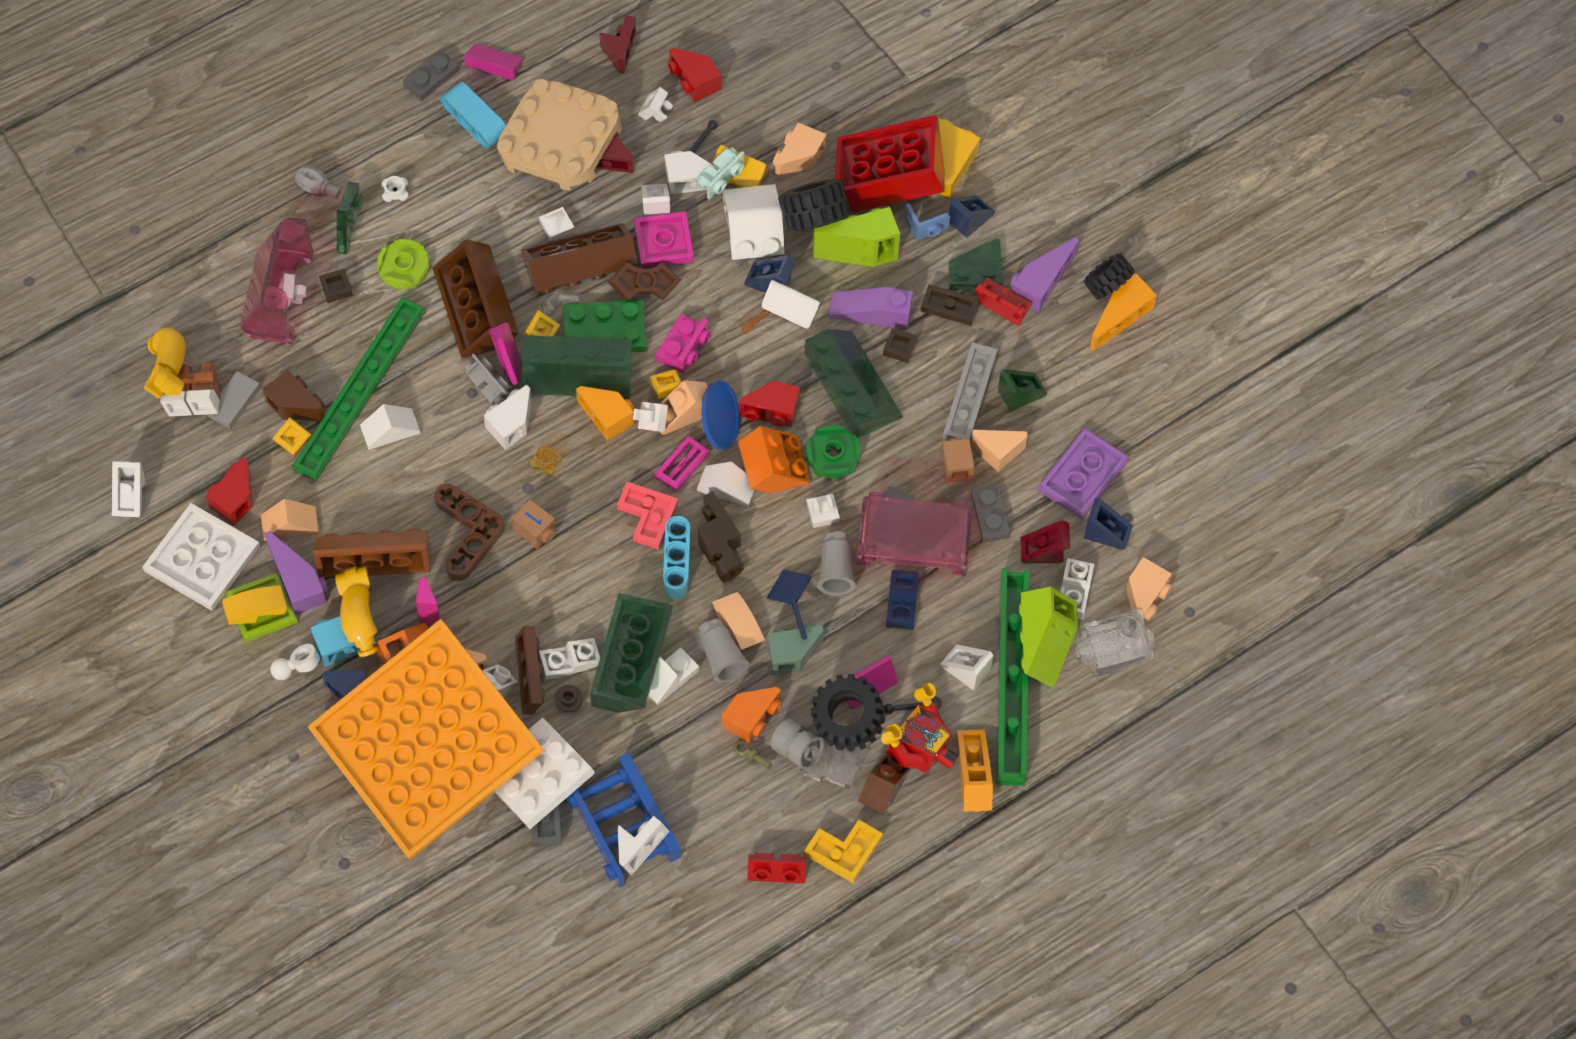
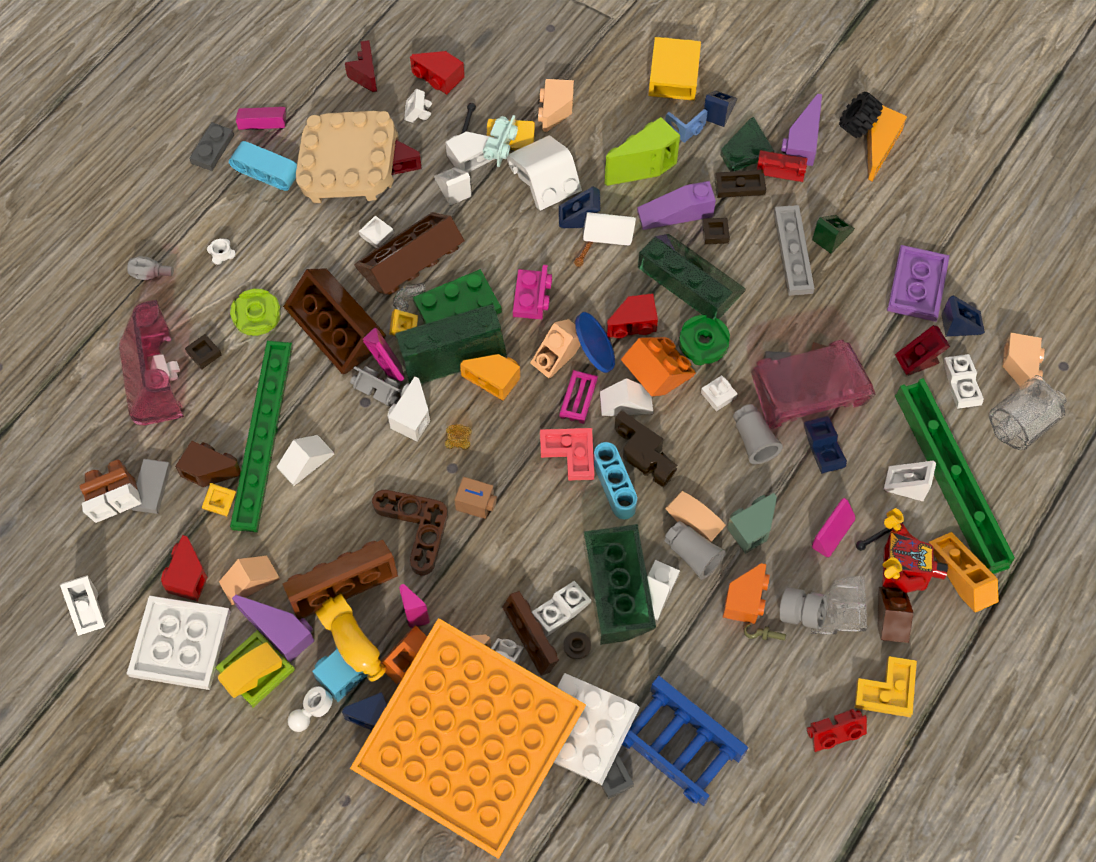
camera: 20 degrees left, 0 degrees up
(170, 352) = (75, 462): yellow piece -> none
(346, 215) = (189, 286): clear green wing -> none
(633, 280) = (464, 255): reddish brown tile -> none
(635, 850) = (710, 767): white slope -> none
(651, 416) = (536, 365): white tile -> none
(663, 239) = (475, 213): dark pink plate -> none
(665, 383) = (533, 333): yellow tile -> none
(788, 590) = (725, 471): dark blue piece -> none
(814, 205) = (596, 137): black tyre -> none
(837, 693) = (844, 540): black tyre -> none
(891, 163) = (639, 86): red slope -> none
(957, 460) = (812, 308): medium nougat brick -> none
(990, 513) = (862, 342): dark grey plate -> none
(998, 446) = (838, 285): light nougat slope -> none
(1046, 632) = (968, 425): lime slope -> none

